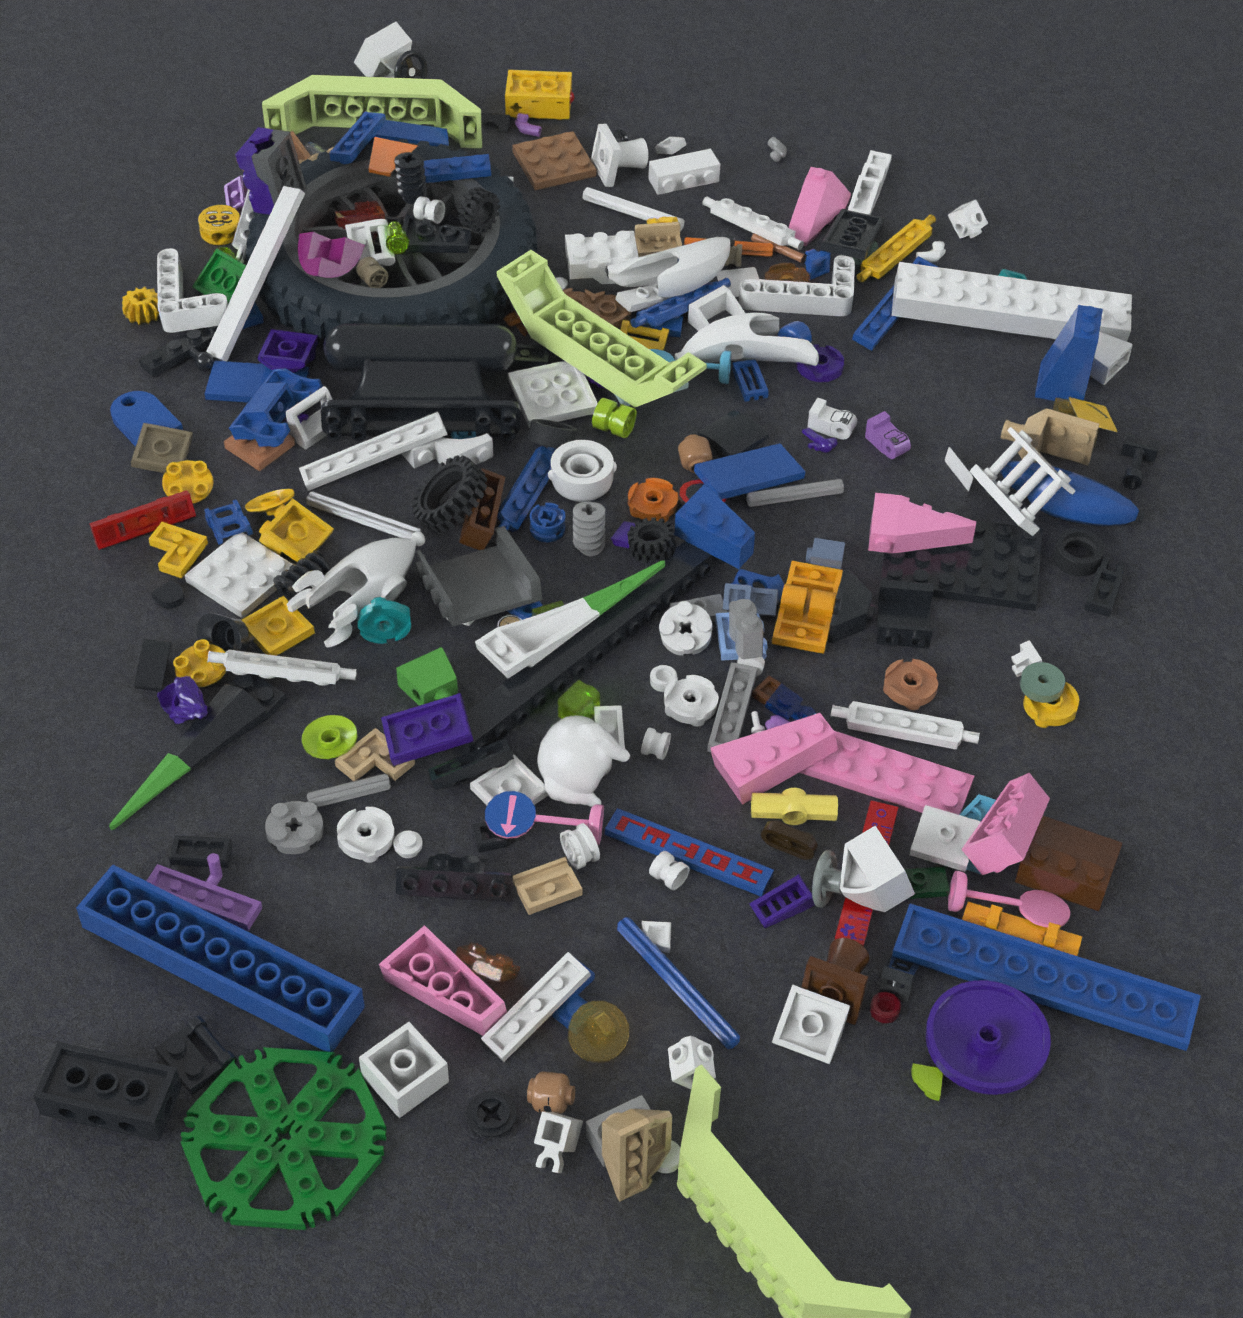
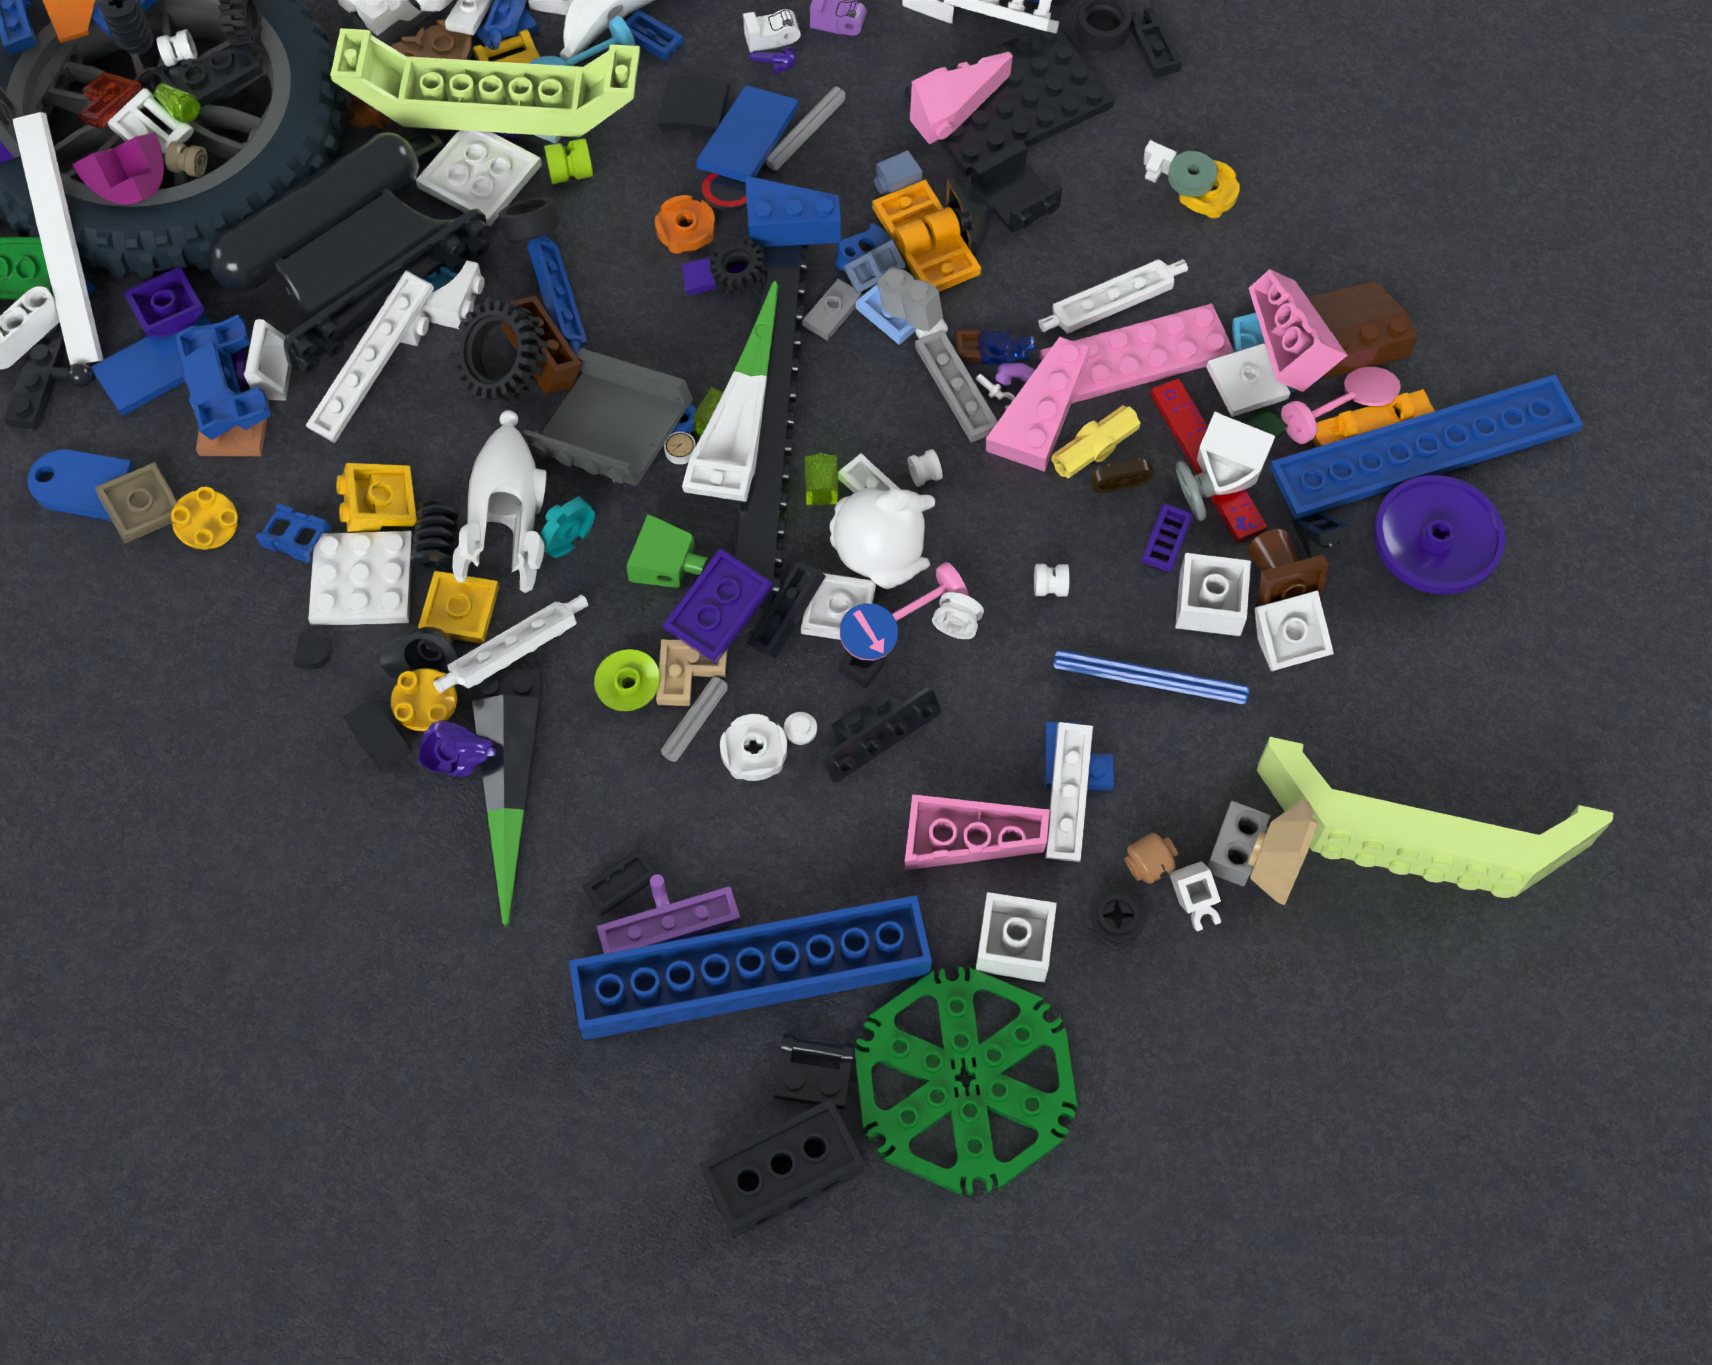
camera: 40 degrees left, 15 degrees up
(142, 519) = (203, 592): red hinge -> none
(181, 546) = (270, 589): yellow plate -> none
(270, 501) = (315, 480): yellow dish -> none
(290, 813) = (679, 773): light grey plate -> none
(361, 515) = (422, 432): axle -> none
(493, 967) = (998, 783): clear orange plate -> none
(546, 522) = (610, 314): blue wheel -> none
(547, 885) = (962, 673): tan plate -> none
(582, 470) = (592, 221): white piece -> none
(589, 527) = (663, 293): light grey piece -> none
(598, 1031) = (1135, 772): clear yellow tile -> none
(658, 933) = (1094, 644): white tile -> none
(661, 677) = (865, 399): white tile -> none
(686, 643) = (856, 323): white plate -> none
(686, 1057) = (1236, 739): white brick -> none
(691, 712) = (912, 418): white plate -> none
(693, 852) = (1048, 549): blue tile -> none
(694, 450) = (679, 148): medium nougat head -> none
(771, 956) = (1213, 594): none -> white brick
(885, 1007) = (1336, 569): dark red tile -> none
(910, 695) = (1079, 266): nougat plate -> none
(928, 1080) = (1420, 607): lime tile -> none

